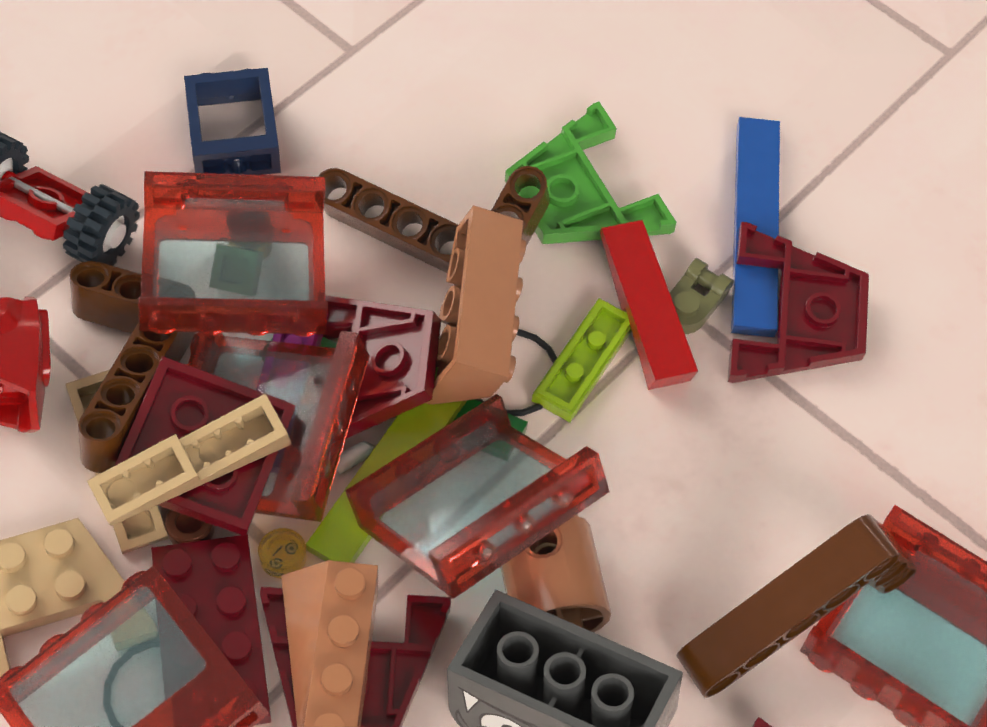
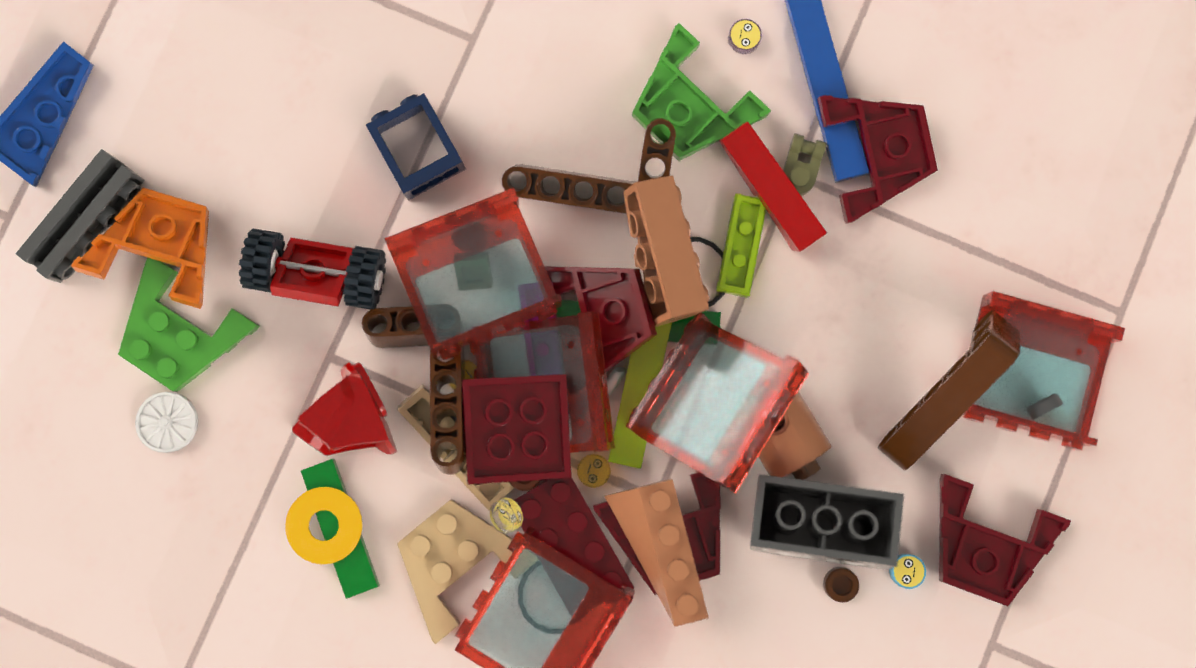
camera: 15 degrees left, 25 degrees up
(140, 555) = (506, 515): none -> clear tile
(190, 461) = (516, 450): tan slope -> none
(674, 145) = (744, 36): none -> tile
(927, 675) = (1044, 406): none -> dark grey tile

